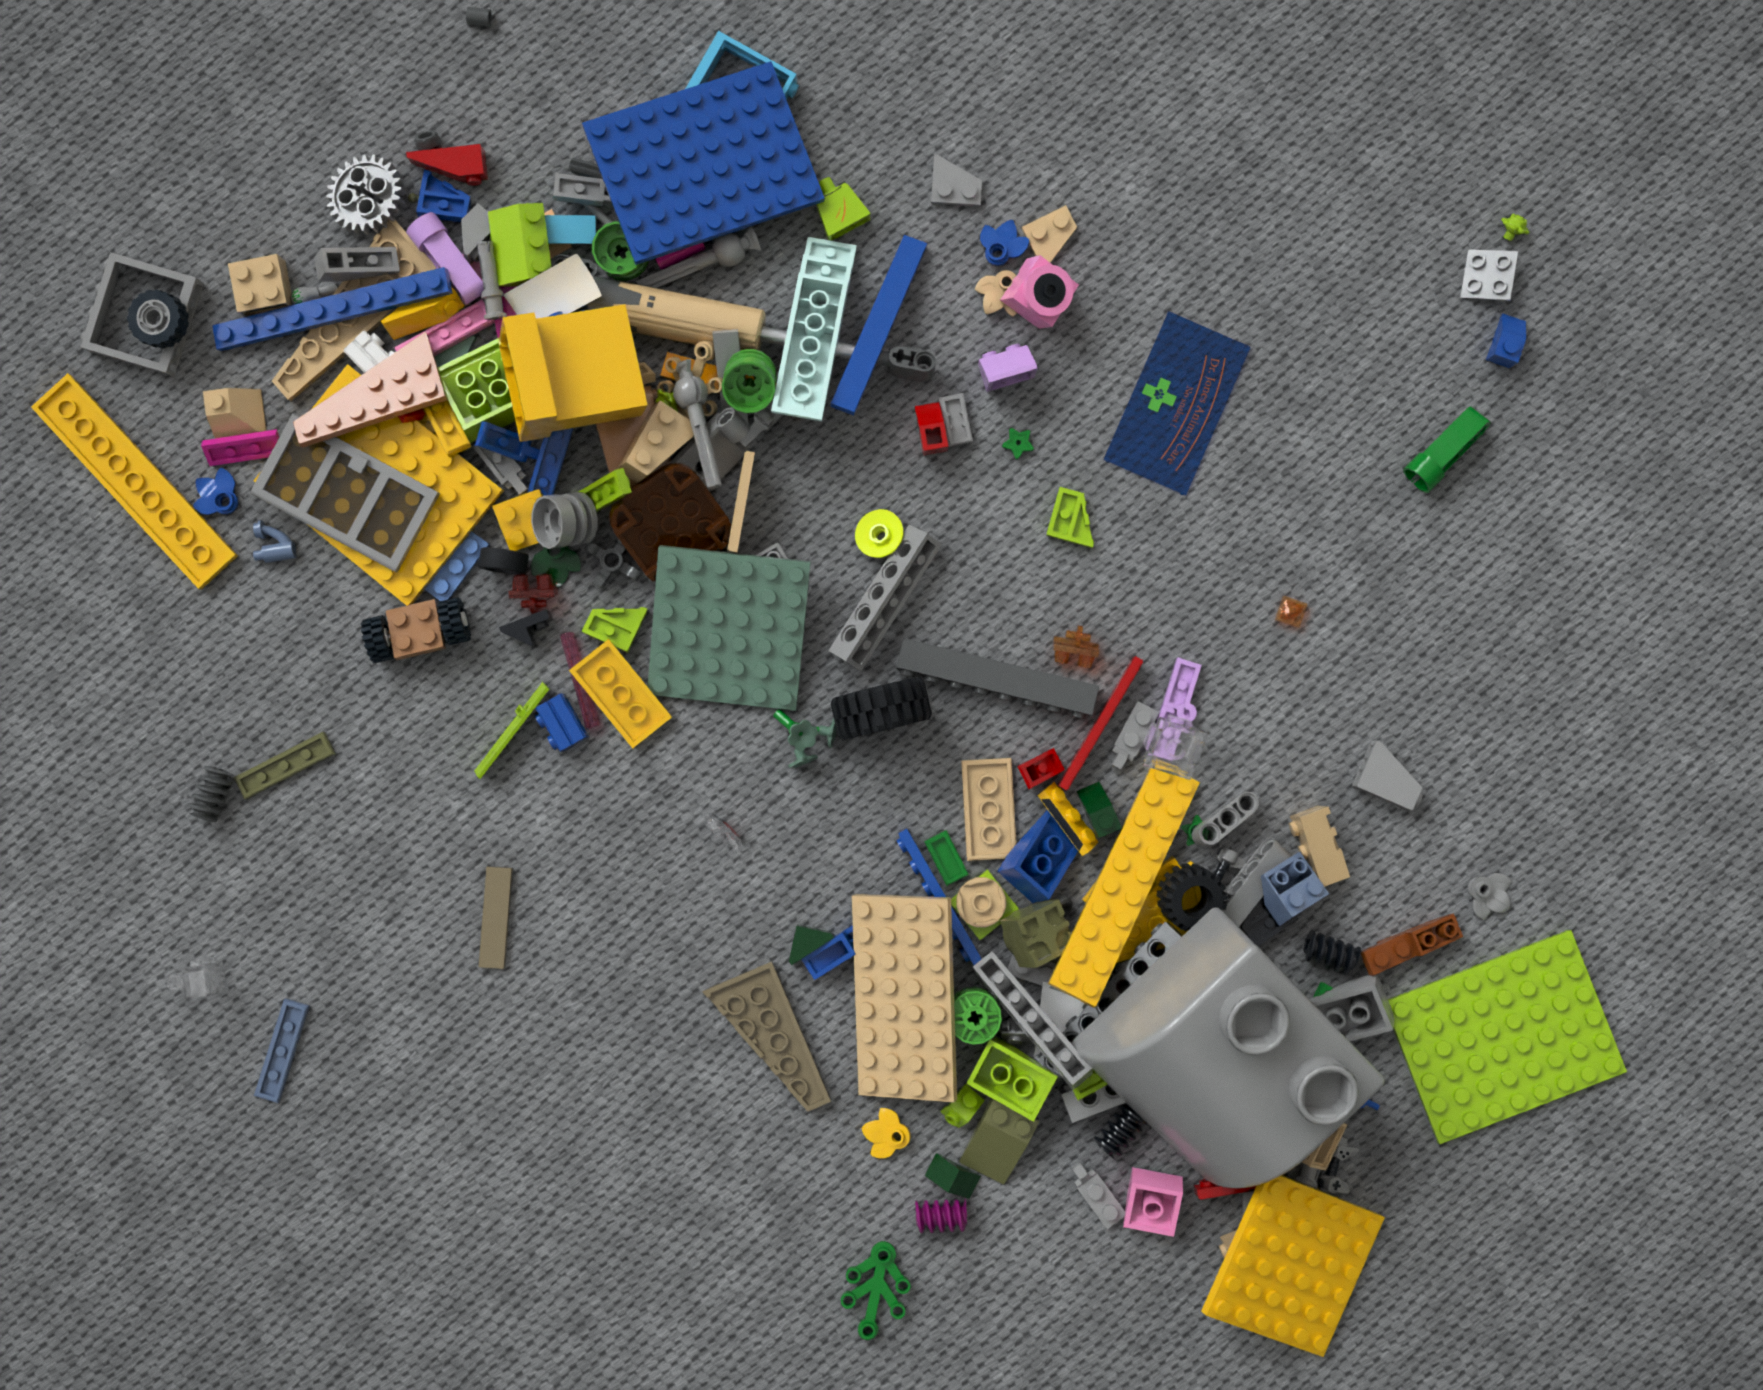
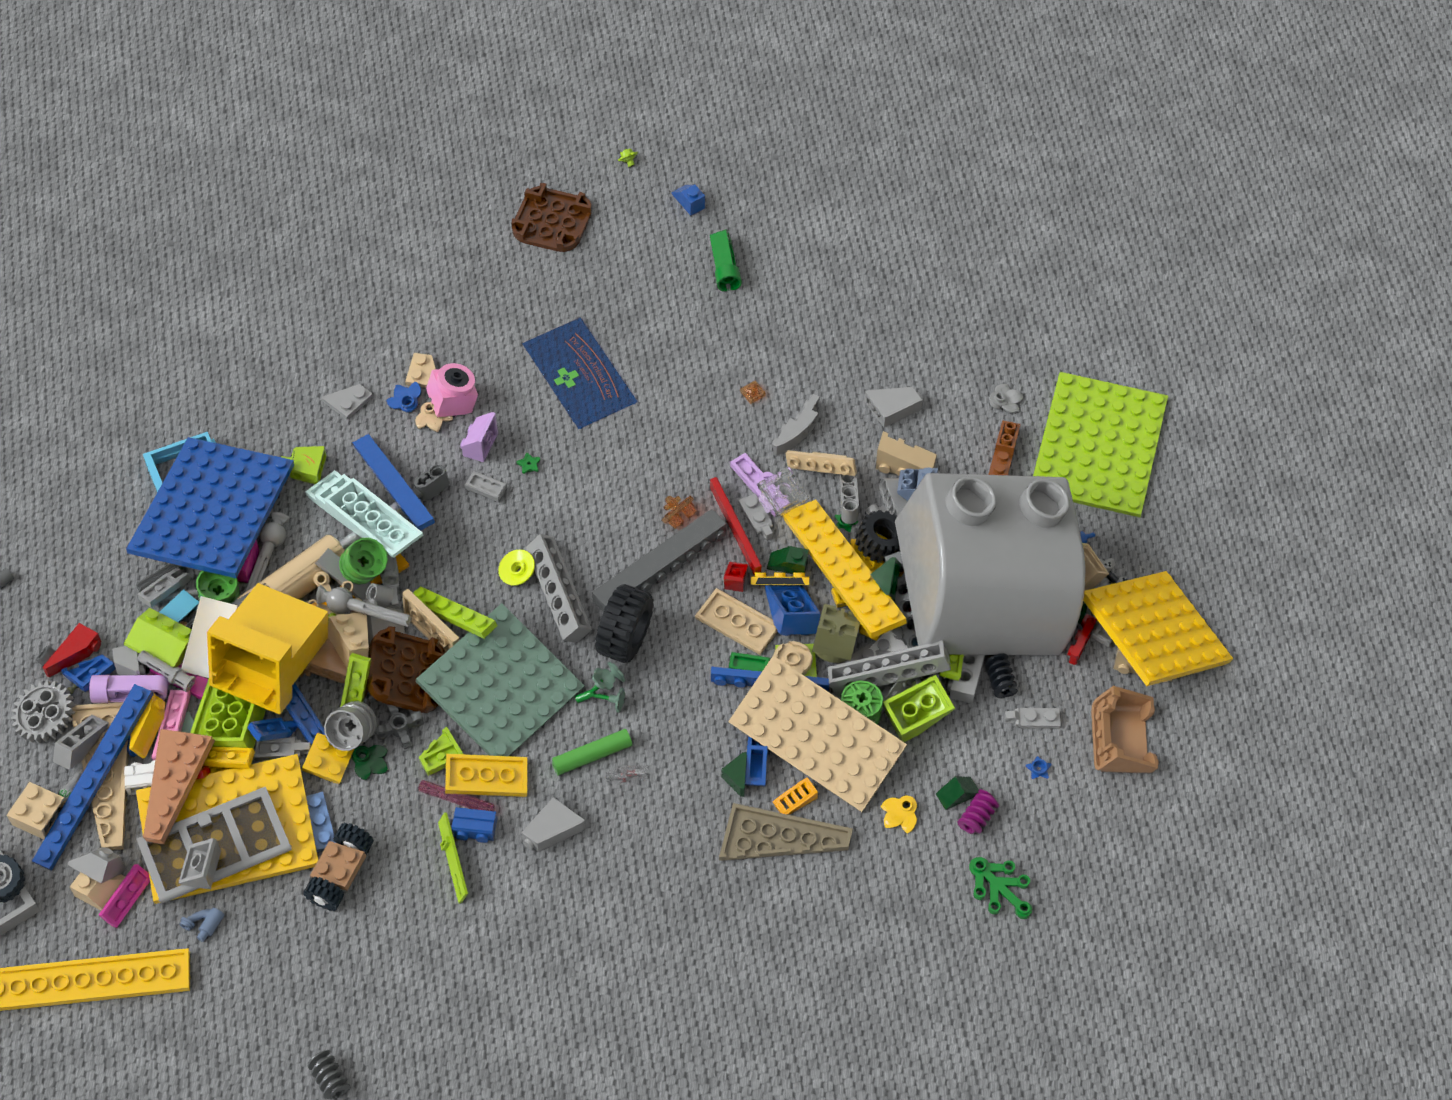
camera: 55 degrees left, 30 degrees down
(214, 491) = (135, 937): blue plate -> none
(247, 395) = (99, 864): none -> light grey slope
(284, 765) = (351, 1019): olive tile -> none
(307, 502) = (200, 864): none -> light grey slope
(495, 917) = (566, 955): dark tan tile -> none
(503, 561) = (342, 784): black tyre -> none
(521, 628) = (395, 805): black slope -> none
(544, 588) = (381, 776): clear red hips -> none
(614, 800) = (552, 826): none -> light grey slope
(725, 777) = (591, 752): none -> bright green brick
(767, 517) = (456, 613): none -> lime plate
(828, 1008) = (806, 799): none -> light orange slope
(931, 428) = (480, 499): red slope -> none
(964, 1108) = (917, 757): lime bracket -> none
(998, 1141) = (953, 746): olive slope -> none
(1040, 1244) = (1038, 763): none -> blue plate
(1070, 518) = (598, 465): lime wing -> none
(1136, 946) = (887, 576): none -> dark green slope
(1140, 1300) = (1121, 731): none -> medium nougat windscreen
(1153, 1201) = (1061, 685): bright pink slope -> none
(1250, 760) = (821, 462): none -> tan bracket
(1269, 696) = (797, 429): none -> light grey slope
(1361, 209) = (551, 218): none -> reddish brown tile
(1489, 275) = (644, 183): hinge -> none

